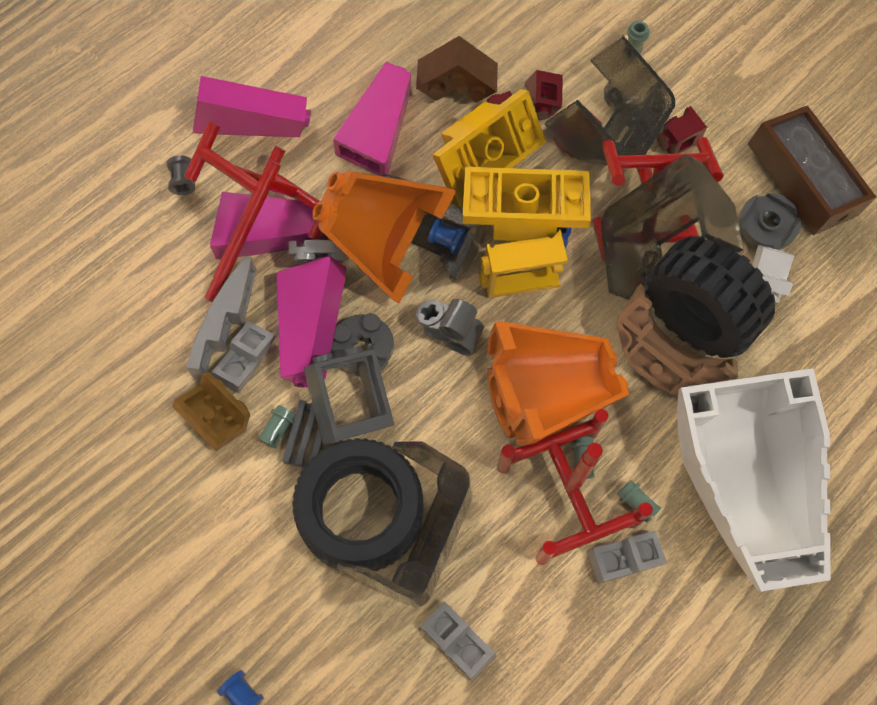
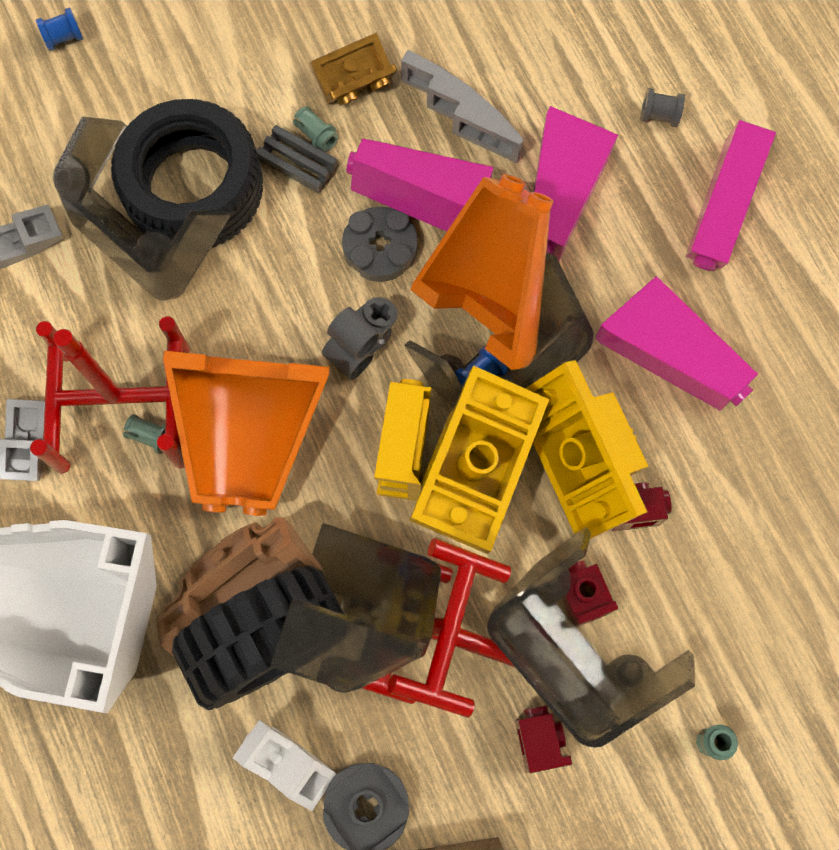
camera: 110 degrees right, 5 degrees up
(244, 357) = (409, 120): light grey slope -> none
(255, 183) = (562, 117): red piece -> none
(373, 388) = (275, 192): dark grey window -> none
(458, 68) = (720, 461): reddish brown brick -> none
(545, 92) = (663, 585): dark red brick -> none
(635, 496) = (76, 475): sand green pin -> none

